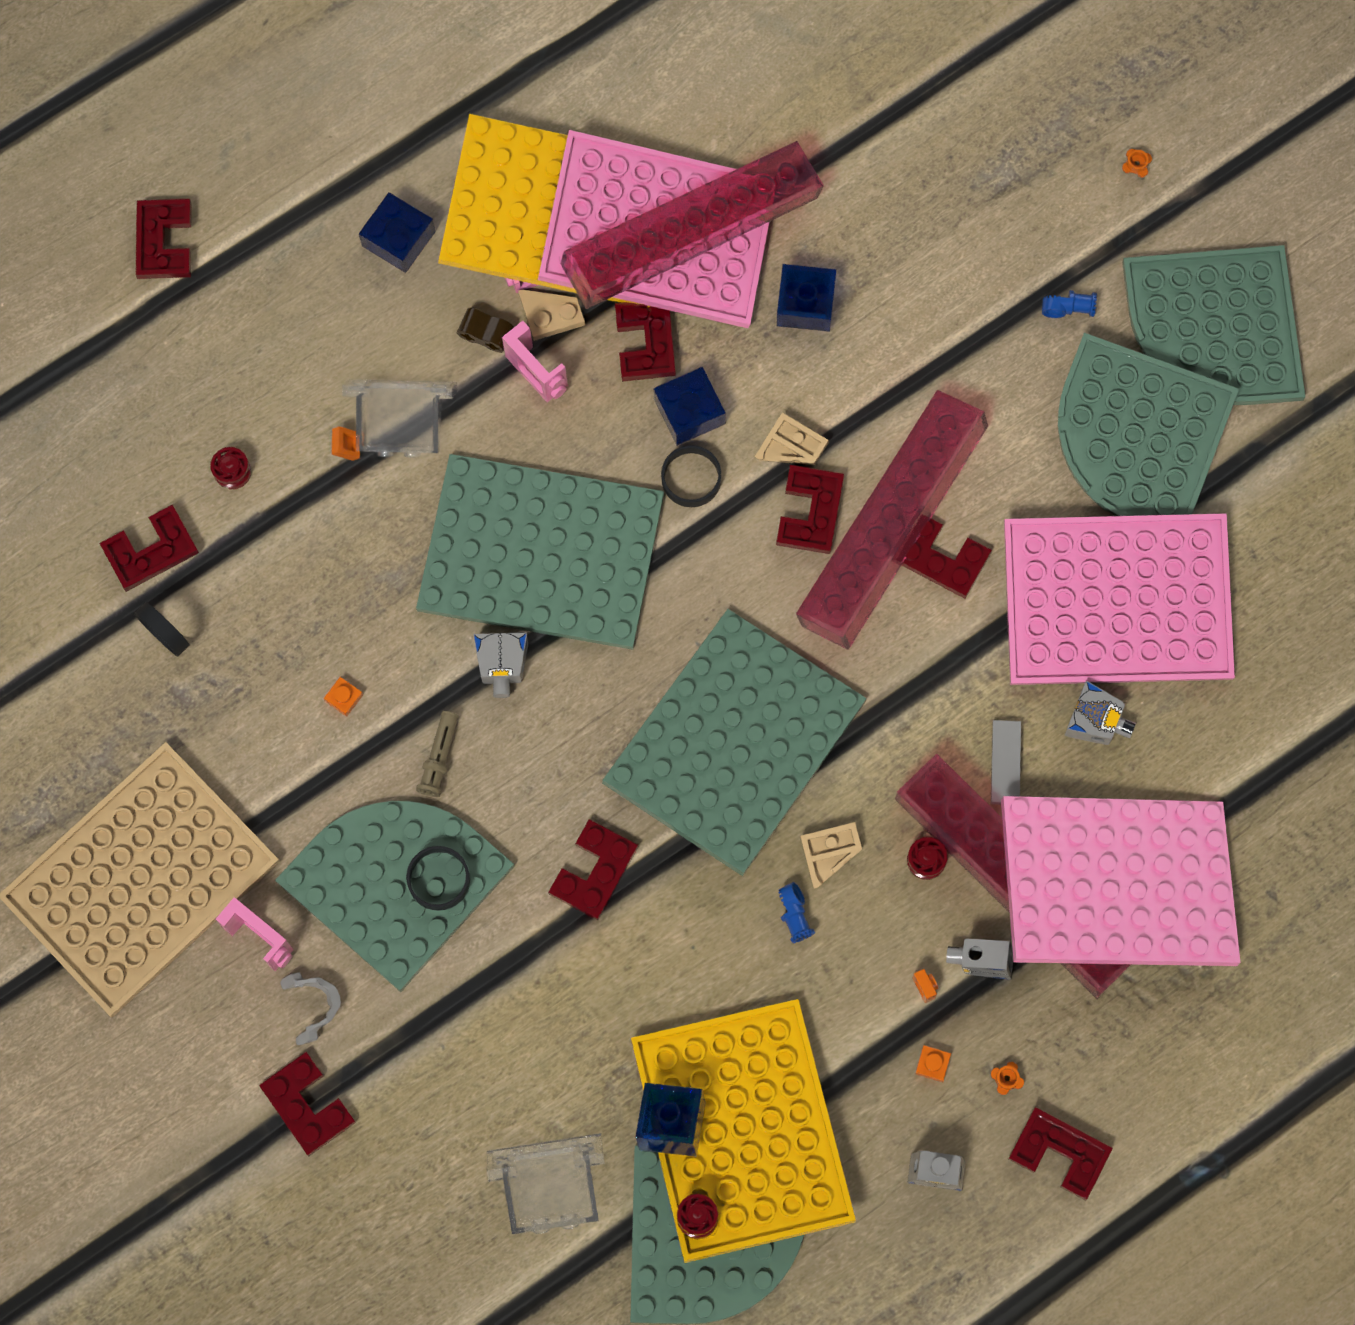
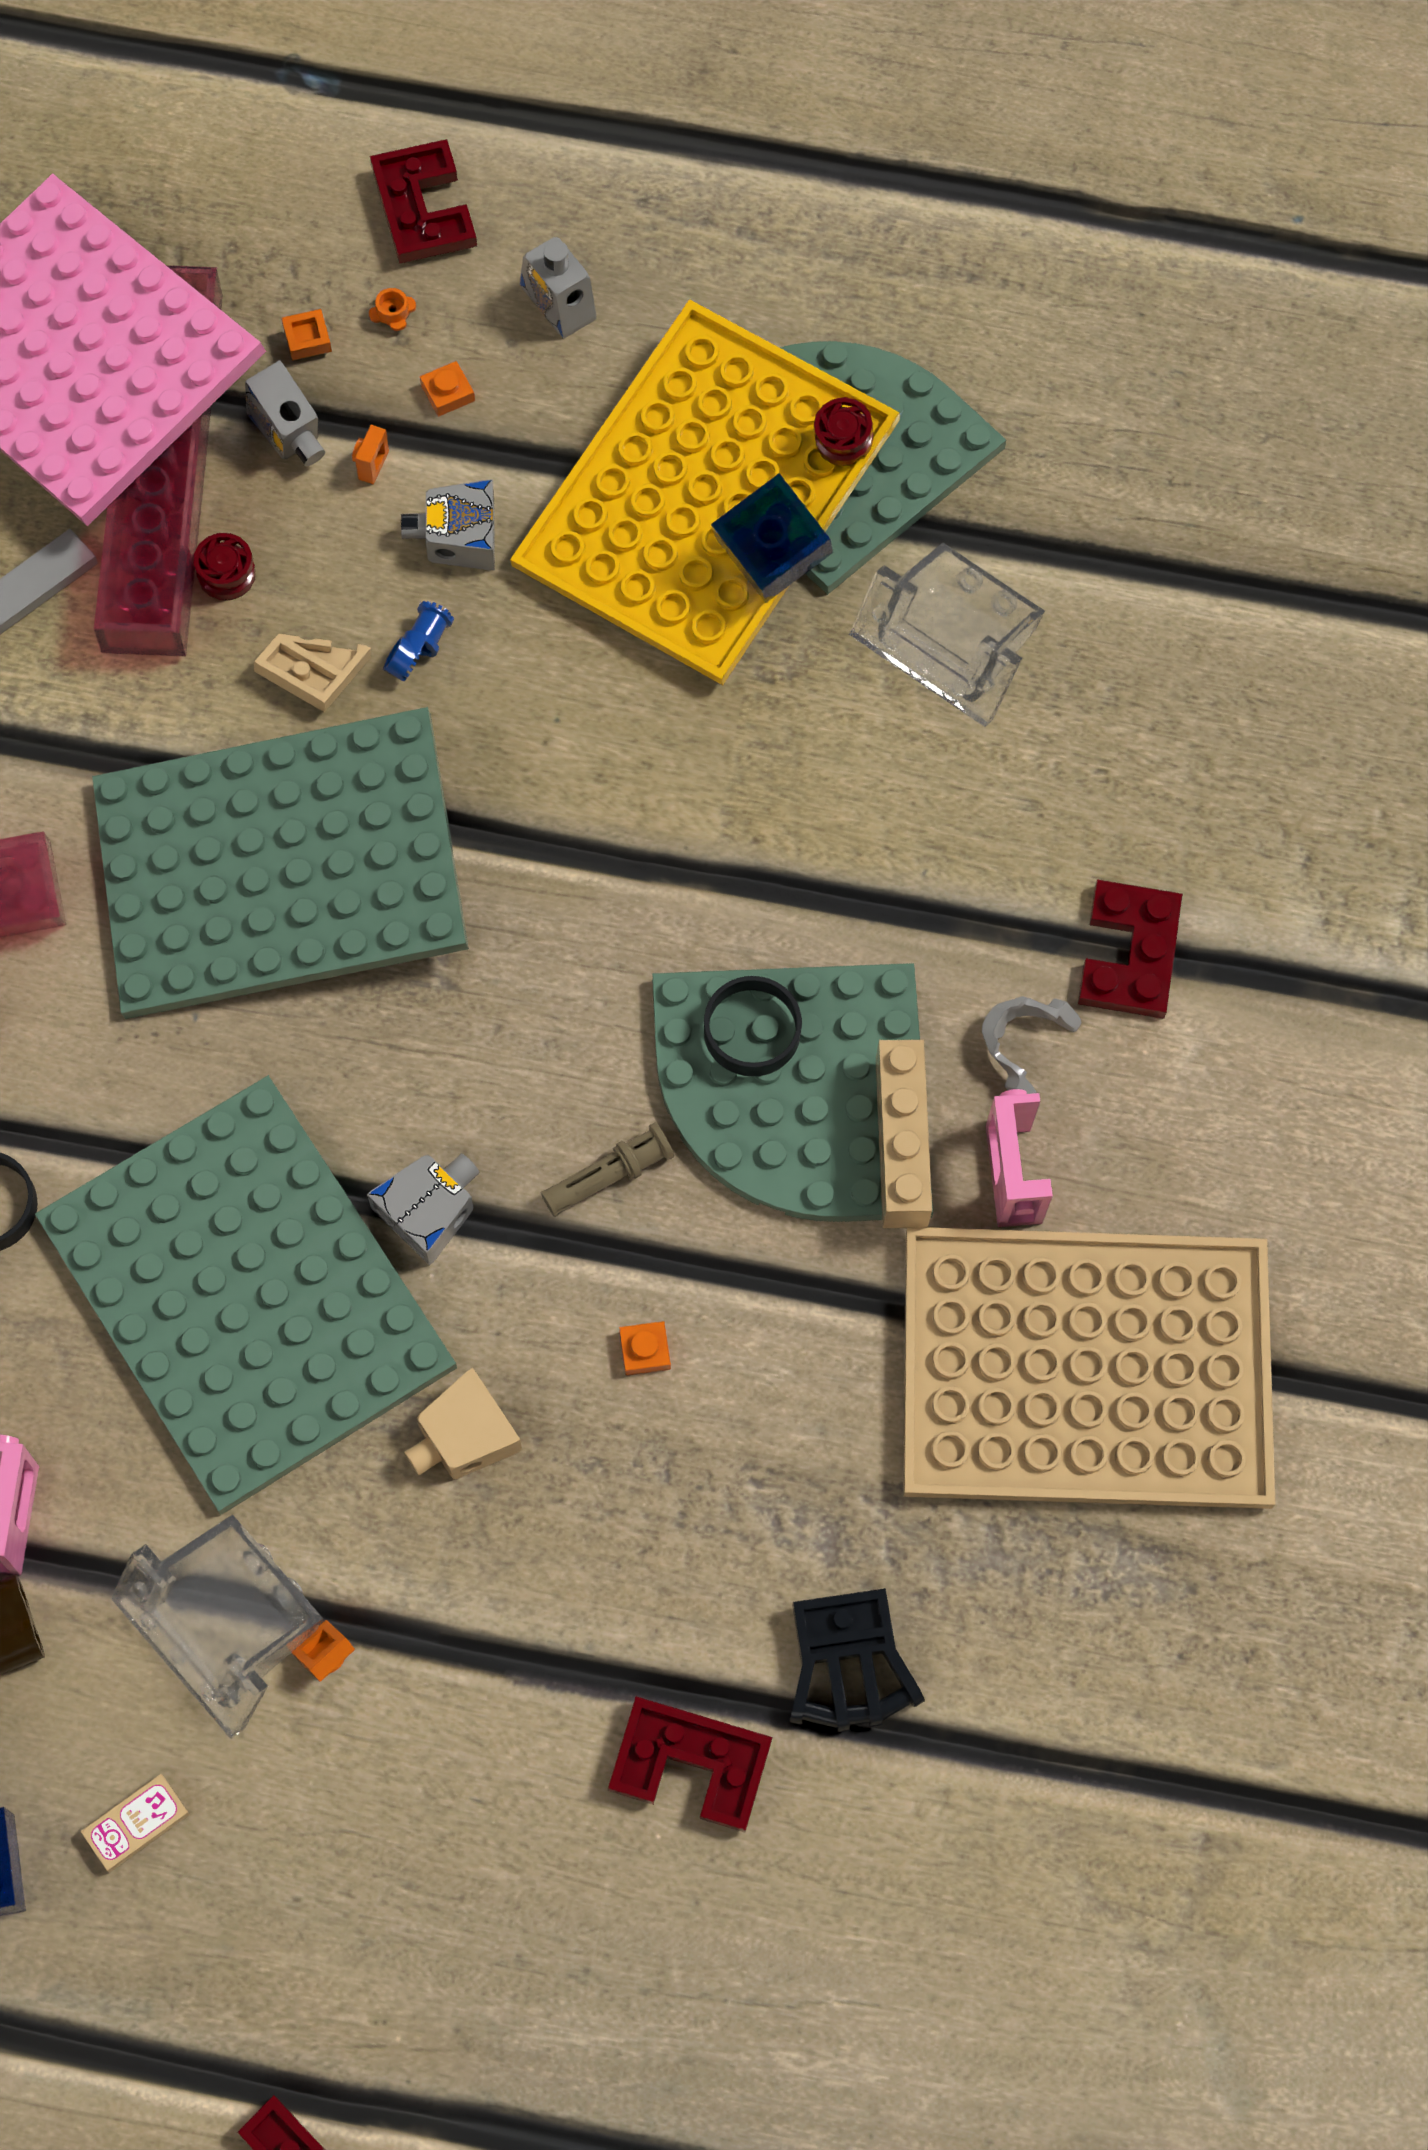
camera: 140 degrees left, 5 degrees down
(137, 661) = (846, 1629): none -> black plate
(161, 629) = (779, 1625): black tyre -> none
(230, 469) = (489, 1767): dark red wheel -> none
(317, 892) = (903, 1134): none -> tan brick
(352, 314) = (135, 1823): none -> tile
(381, 583) = (463, 1430): none -> tan torso
(614, 858) = (540, 879): dark red plate -> none
(842, 991) = (456, 525): none -> torso
(1030, 1018) = (306, 334): none -> orange plate

